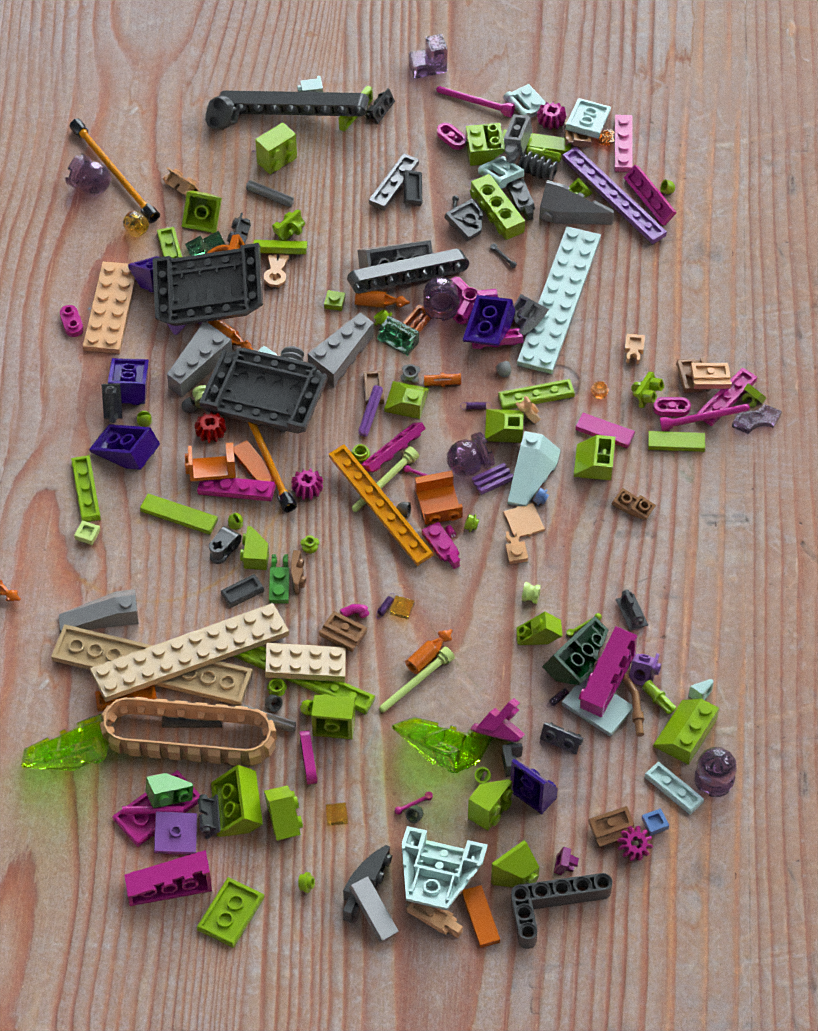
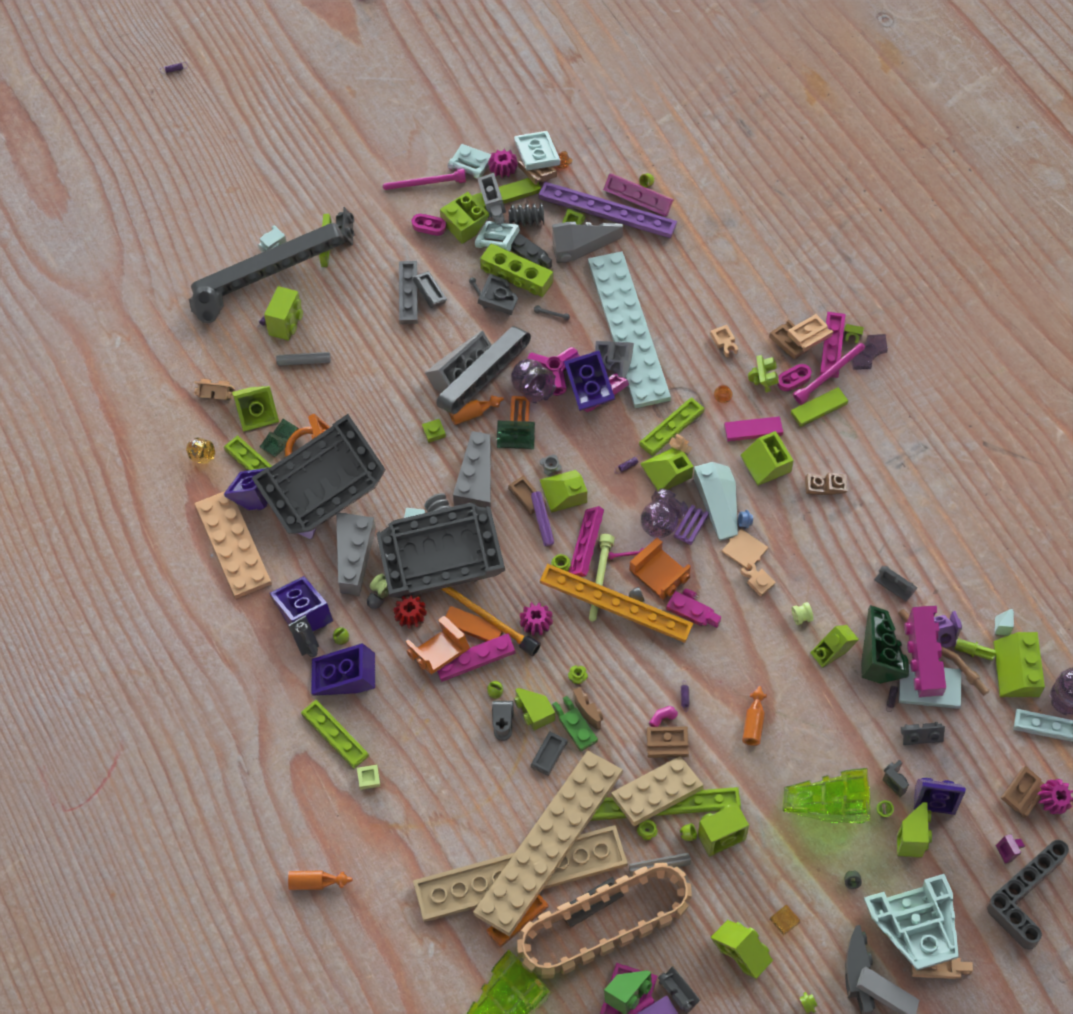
camera: 30 degrees left, 5 degrees up
(71, 319) = (203, 575): dark pink plate -> none
(88, 175) = (128, 426): clear purple tile -> none
(108, 611) = (440, 843): light grey wedge -> none
(147, 210) = (81, 385): light orange hose -> none
(179, 514) = (438, 711): lime tile -> none
(231, 333) = (364, 510): orange wheel -> none
(238, 801) = (693, 960): lime slope -> none
(240, 226) = (299, 404): dark grey hinge -> none
(275, 275) = (368, 432): light nougat piece -> none
(275, 699) = (655, 846): dark grey hinge -> none
(282, 246) = (349, 405): lime tile -> none
(290, 225) = (346, 378): lime hips -> none
(308, 757) = (724, 880): dark pink beam -> none
(381, 316) = (489, 424): lime plate -> none
(402, 607) = (700, 689): clear yellow tile -> none
(428, 796) = (849, 855): dark pink hinge -> none
(429, 379) = (591, 450): orange pin -> none
(431, 59) = (362, 162): clear purple brick -> none
(445, 656) = (771, 716): yellowish green piece -> none
(471, 522) = (703, 576): lime plate -> none
(480, 916) = (979, 944): orange tile -> none
(498, 723) = (867, 751): dark pink piece -> none
(504, 369) = (629, 418): light grey hinge -> none
(515, 867) = (980, 879): lime slope -> none
(554, 156) = (530, 200): lime axle -> none
(570, 632) = (858, 631): lime hinge -> none
(623, 143) = (580, 159): bright pink plate -> none
(655, 822) = (1055, 766): medium blue plate -> none

